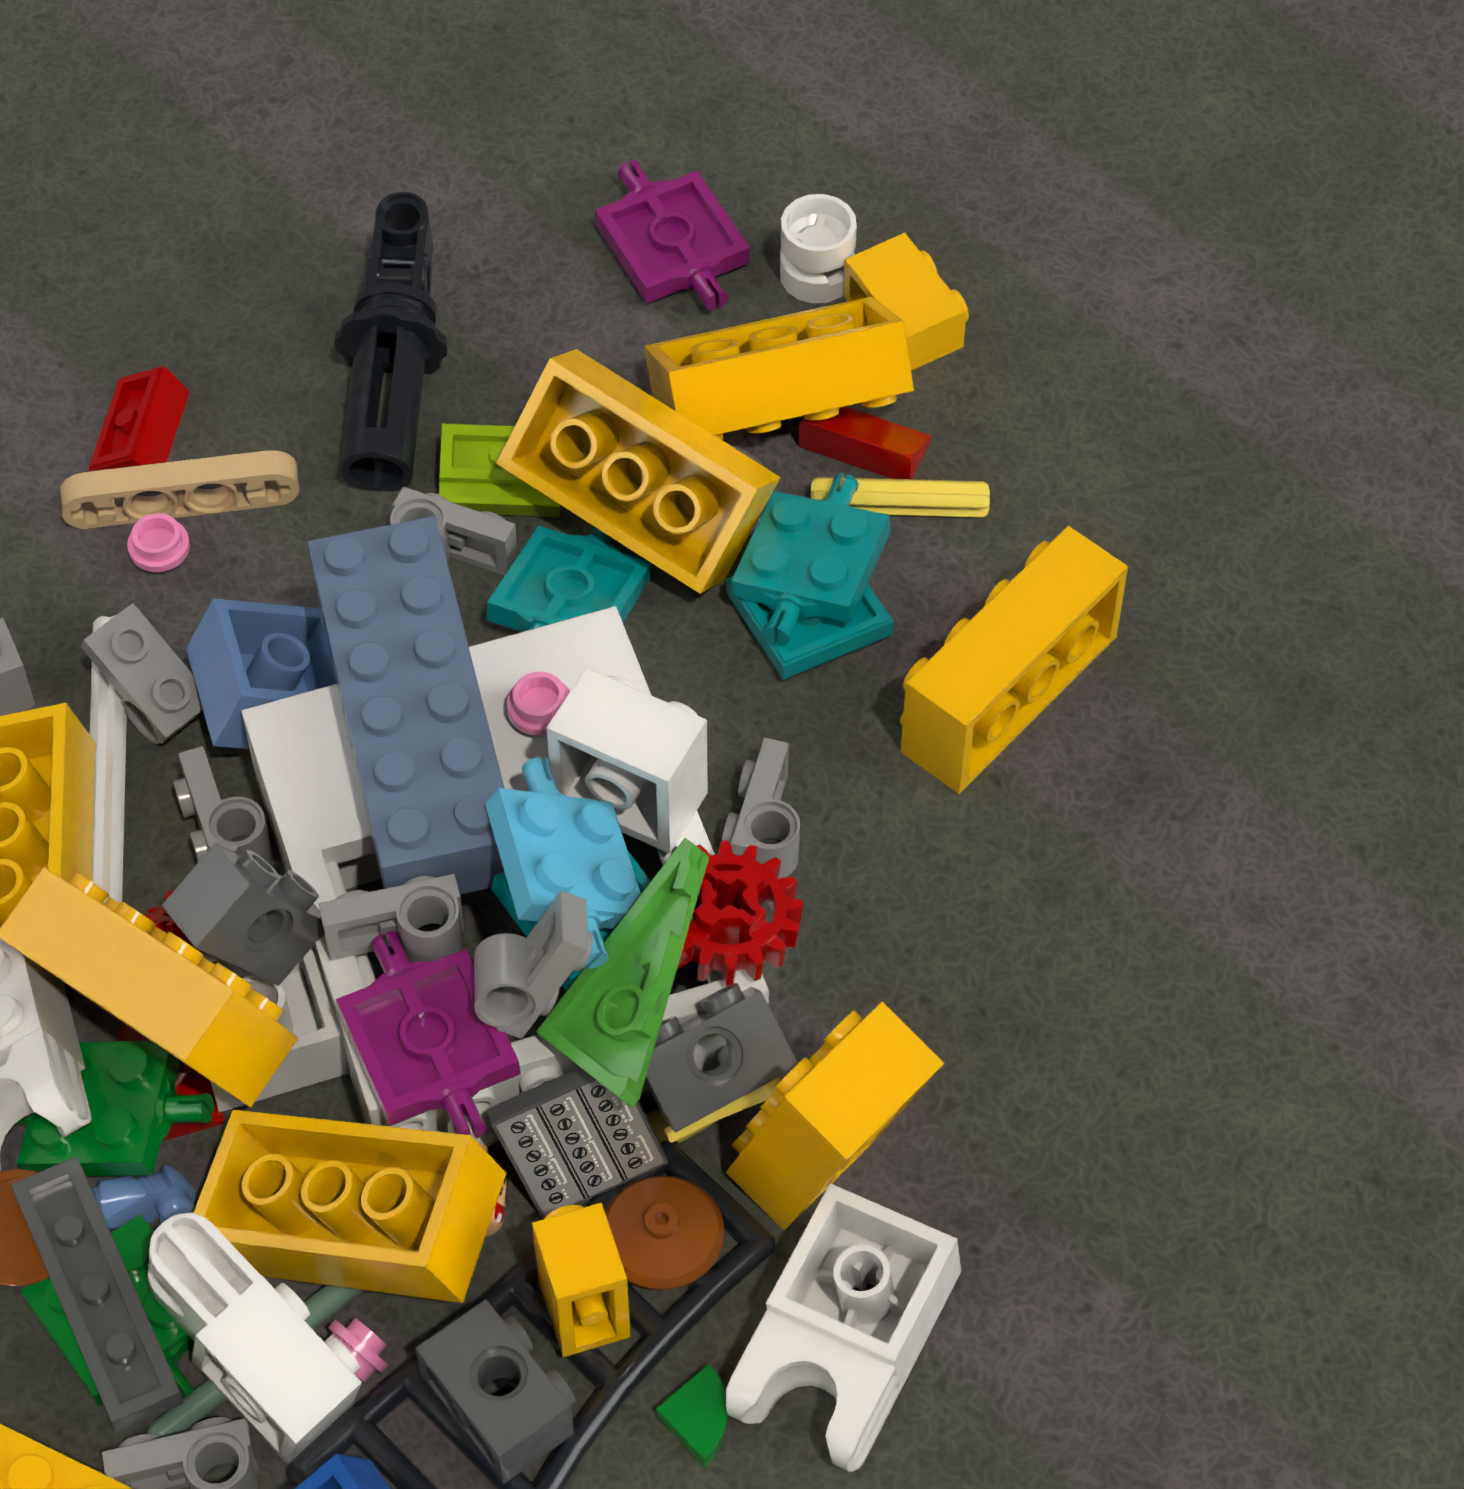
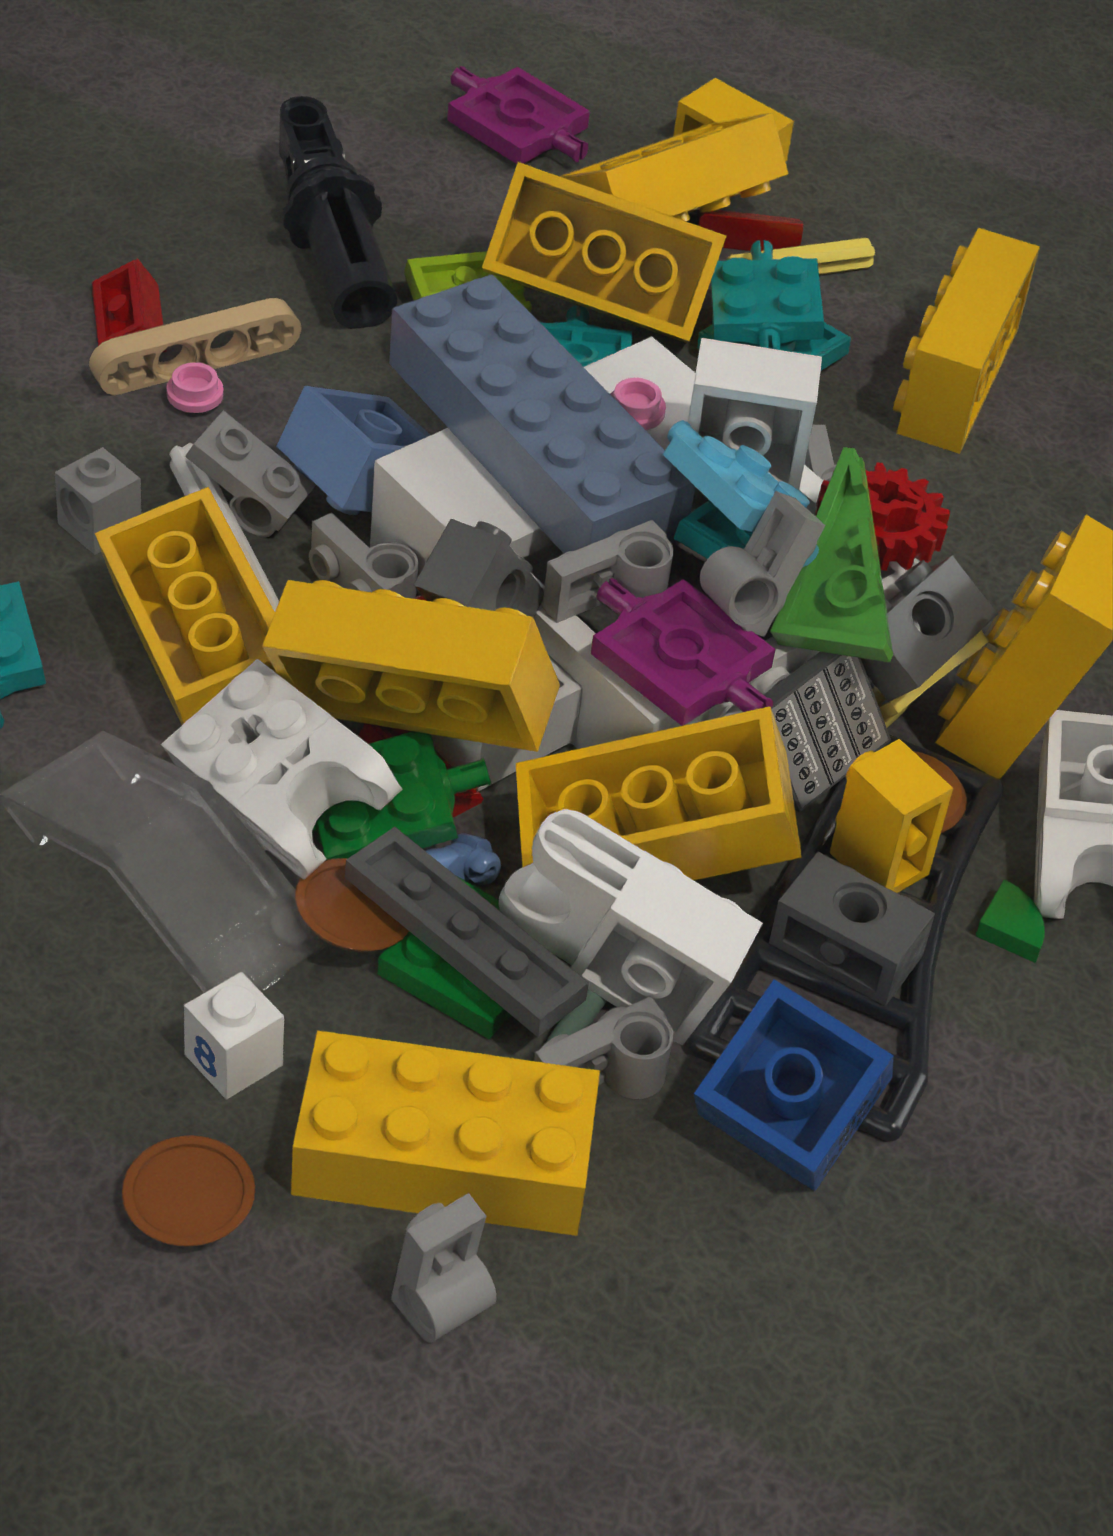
camera: 25 degrees left, 10 degrees down
(815, 242) = (647, 100): white wheel -> none

